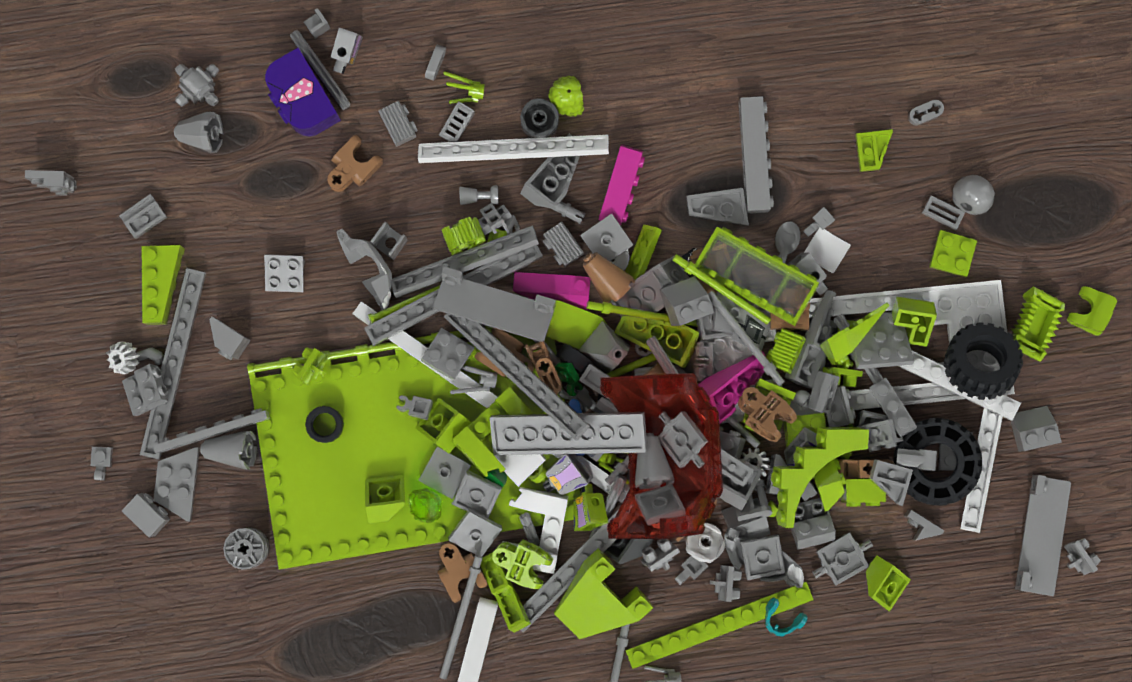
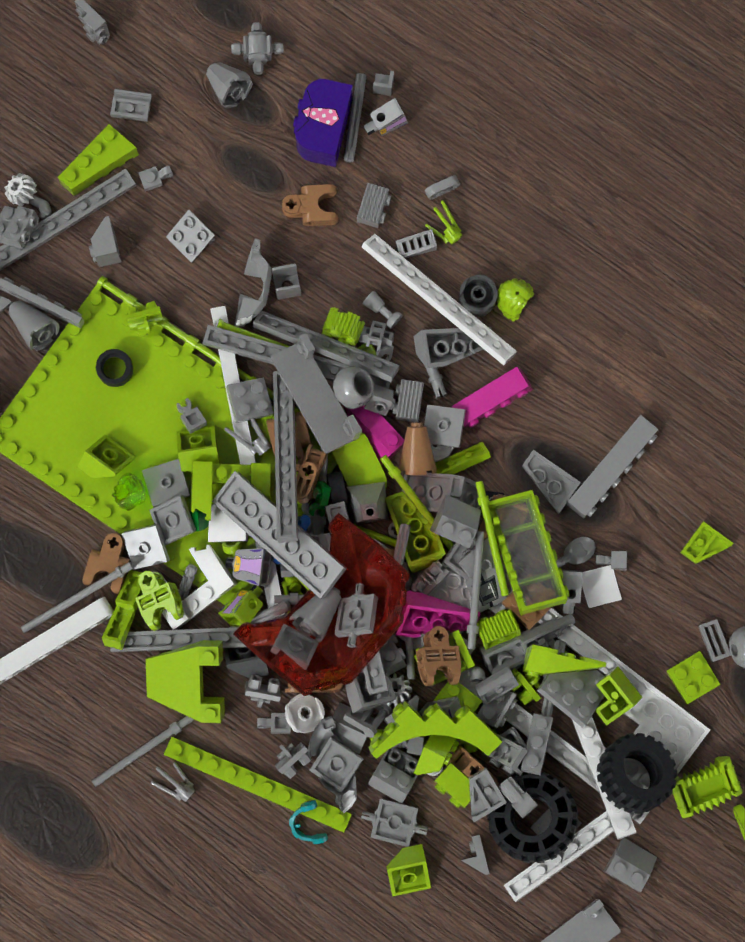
camera: 45 degrees right, 5 degrees down
(213, 256) = (152, 177): none -> light grey plate
(516, 273) = (353, 387): none -> light grey piece
(541, 264) = (381, 400): none -> light grey brick

